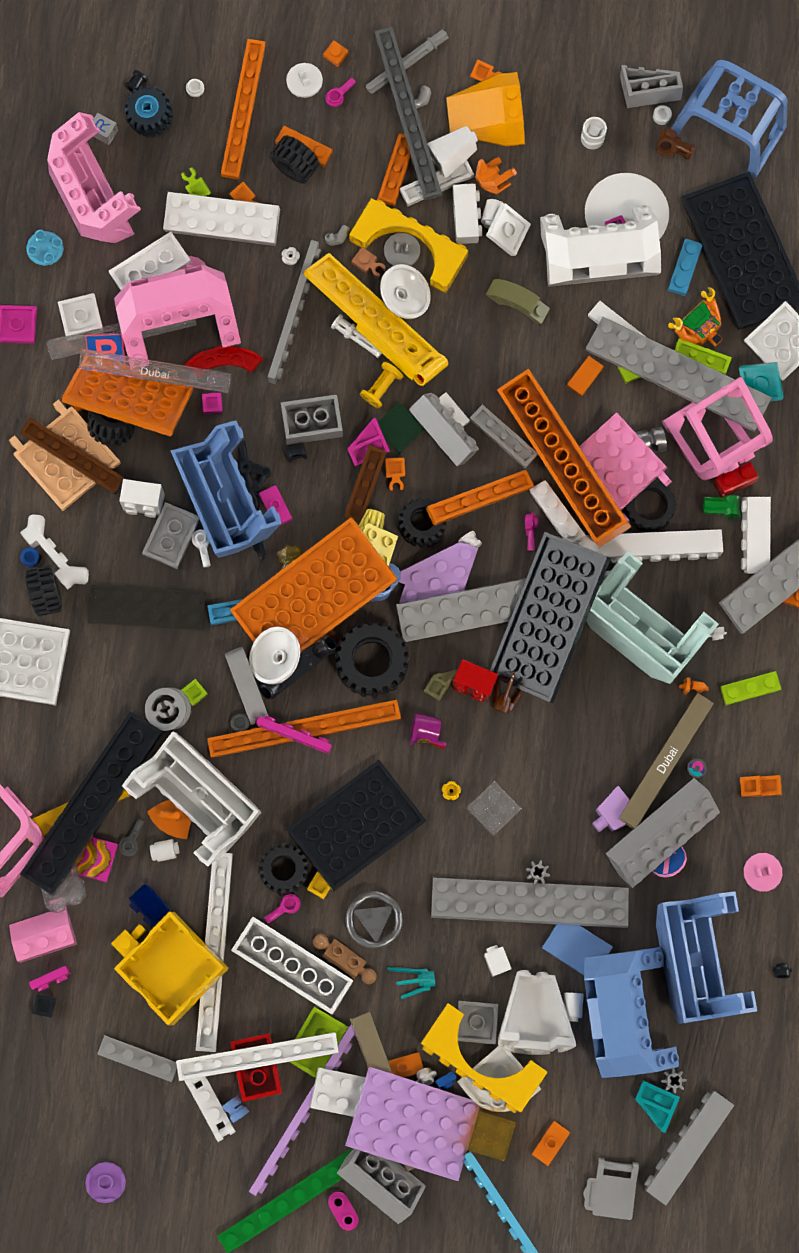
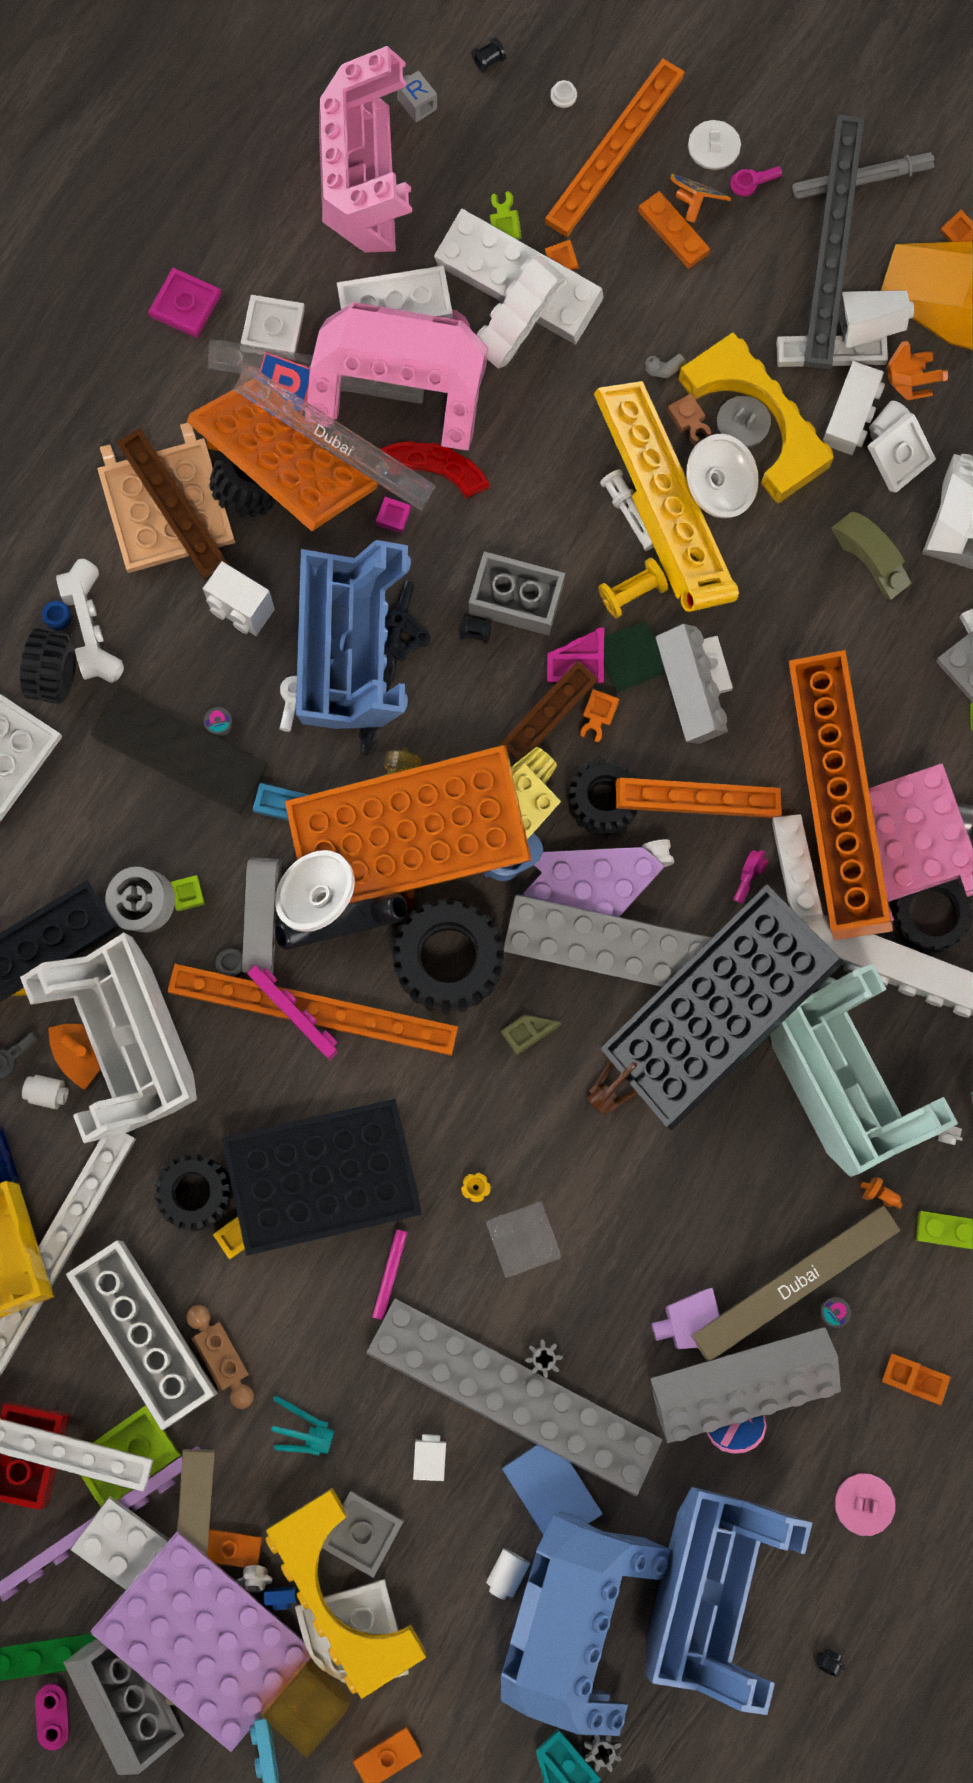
camera: 25 degrees right, 0 degrees up
(44, 247) = (268, 218): medium azure dish -> none
(148, 111) = (487, 97): black wheel -> none
(162, 579) = (218, 721): none -> tile
(171, 535) = (254, 668): light grey plate -> none
(234, 241) = (520, 310): none -> white brick
(272, 497) = (416, 680): dark pink plate -> none
(289, 904) = (180, 1245): dark pink plate -> none
(290, 260) = (589, 372): white plate -> none
(292, 320) = (553, 448): light grey plate -> none
(294, 159) = (652, 237): black tyre -> none
(306, 118) = (695, 199): none -> orange shield
(335, 53) = (772, 126): orange plate -> none
(374, 920) = (284, 1321): flat silver piece -> none
(395, 172) = (781, 314): orange tile -> none
(423, 865) = (389, 1274): none -> dark pink bar
(424, 96) = (865, 230): light grey arm -> none
(426, 730) = (478, 1088): magenta hat -> none
(474, 681) = (576, 1049): red brick -> none
(503, 436) = (770, 730): light grey plate -> none
(535, 1017) = (447, 1565): white cone -> none
(585, 376) = (919, 696): orange tile -> none

